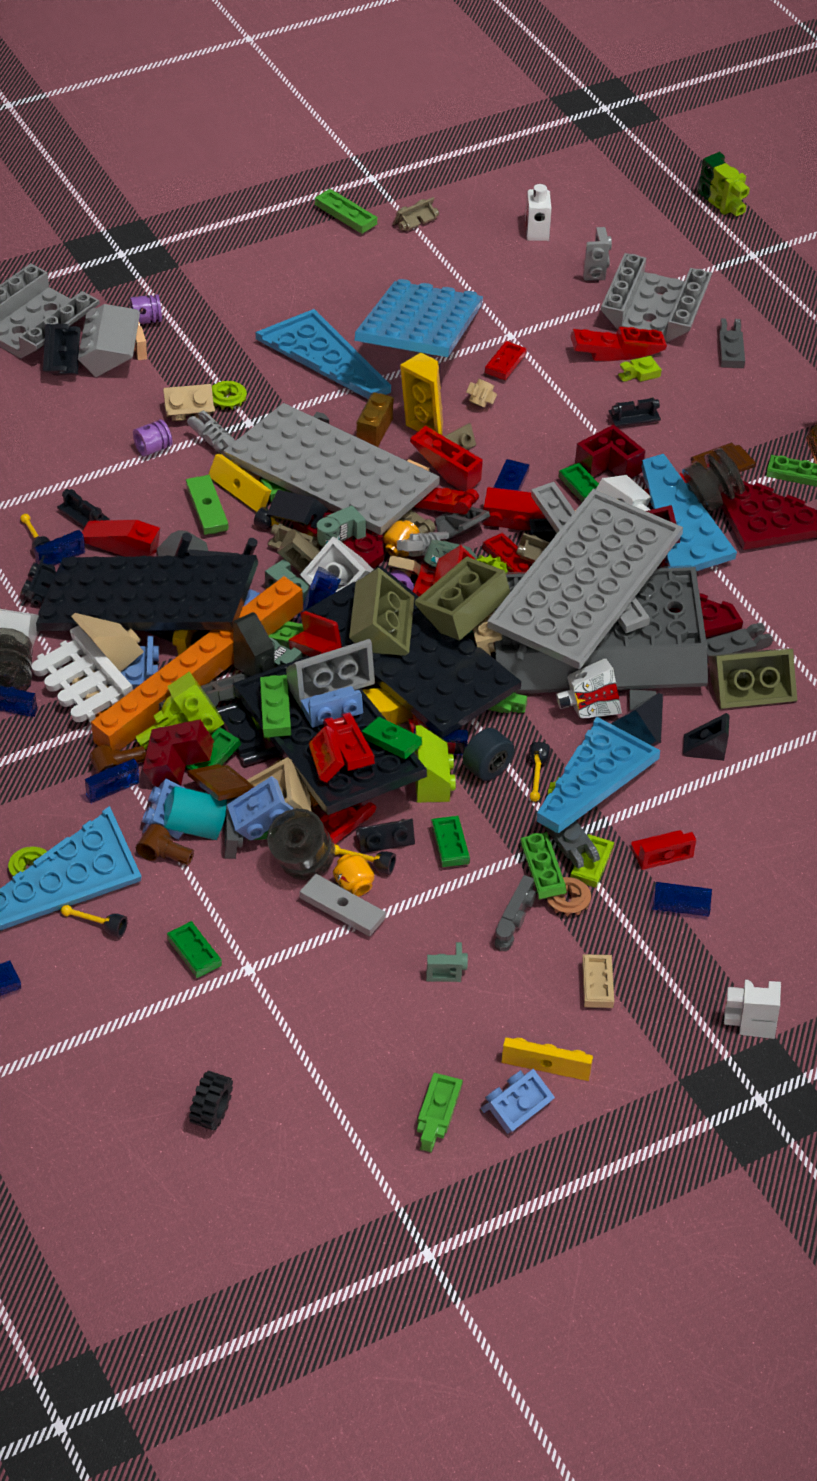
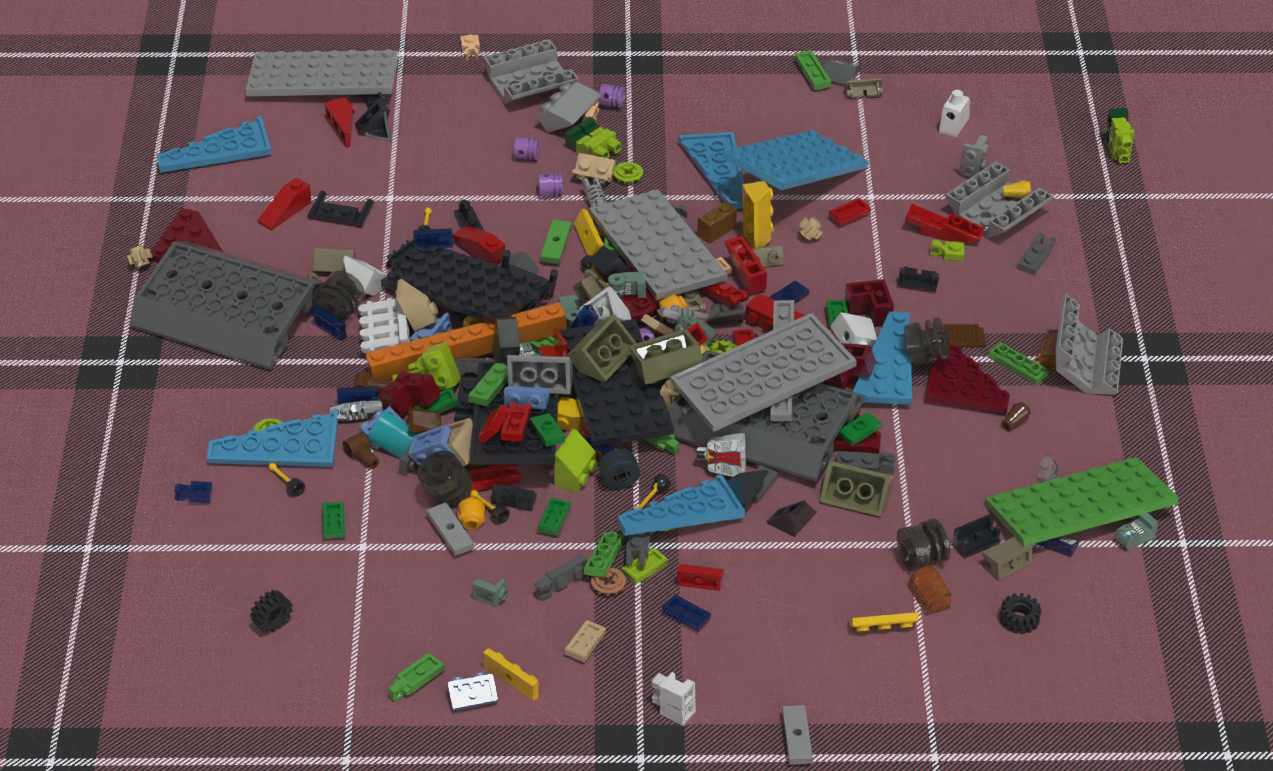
camera: 30 degrees right, 5 degrees down
(61, 349) = (527, 104): black hinge -> none
(92, 402) = (526, 148): none -> medium lavender piece
(123, 797) = (357, 410): none -> light grey hinge
(161, 369) = (592, 139): none -> lime hips
(378, 203) = (841, 71): none -> dark grey slope
(669, 277) = (1018, 189): none -> yellow cone
(712, 604) = (859, 428): none -> green plate

